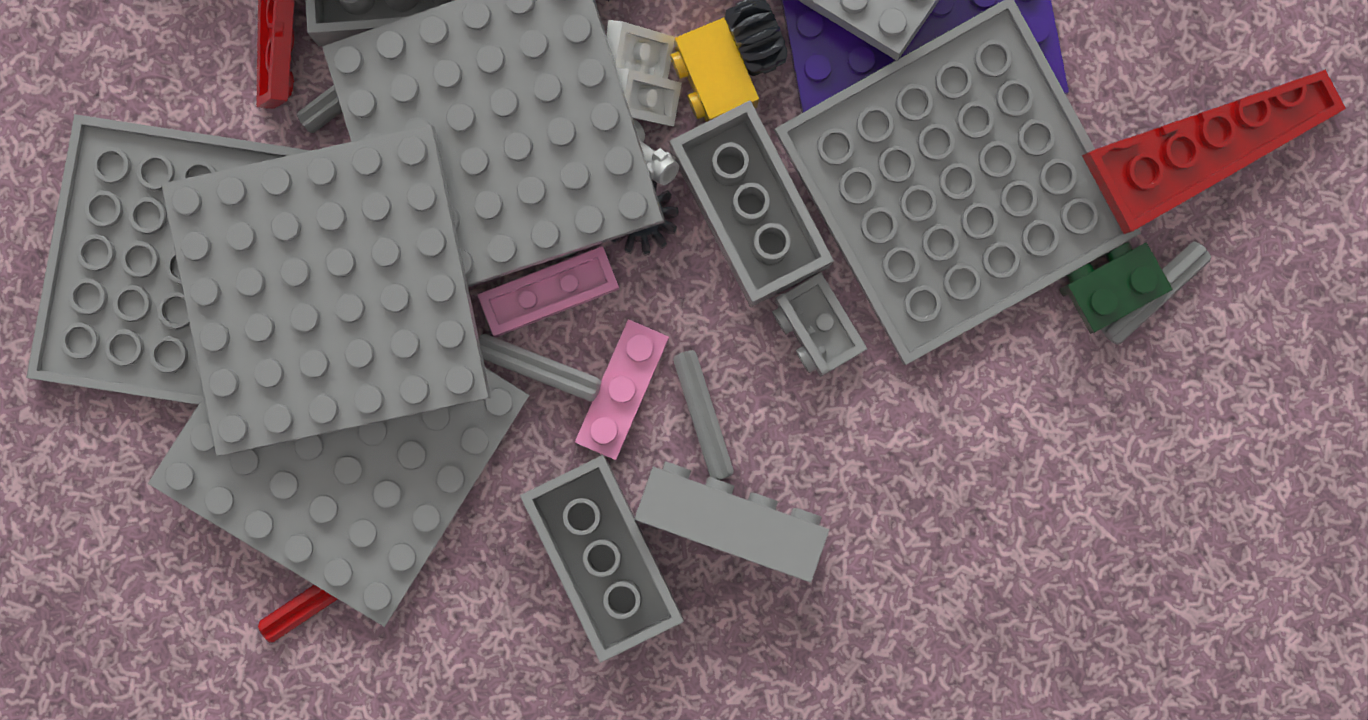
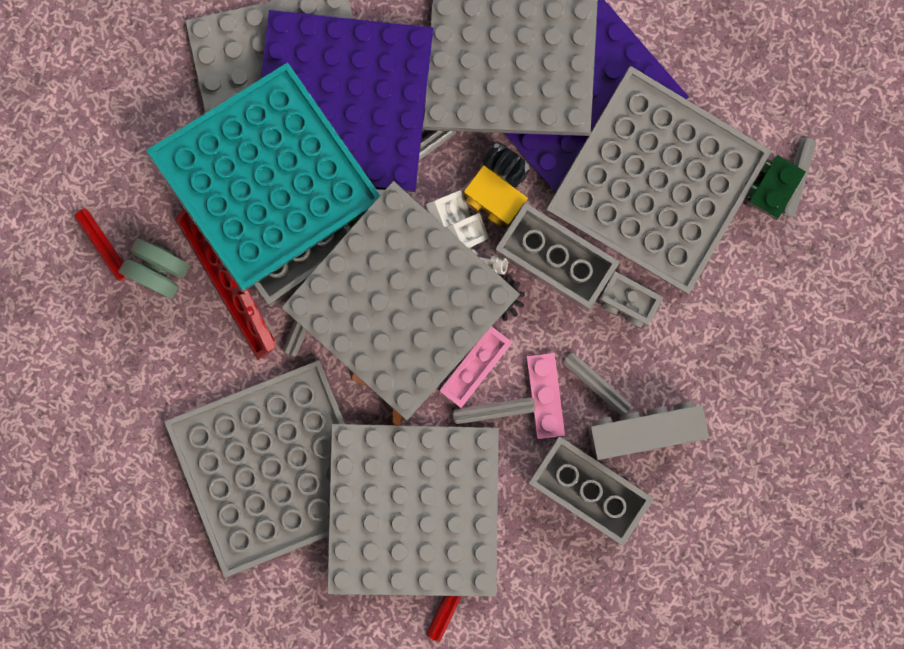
camera: 30 degrees left, 0 degrees up
(325, 290) = (363, 436): light grey plate -> none
(1181, 159) = (770, 99): red wing -> none

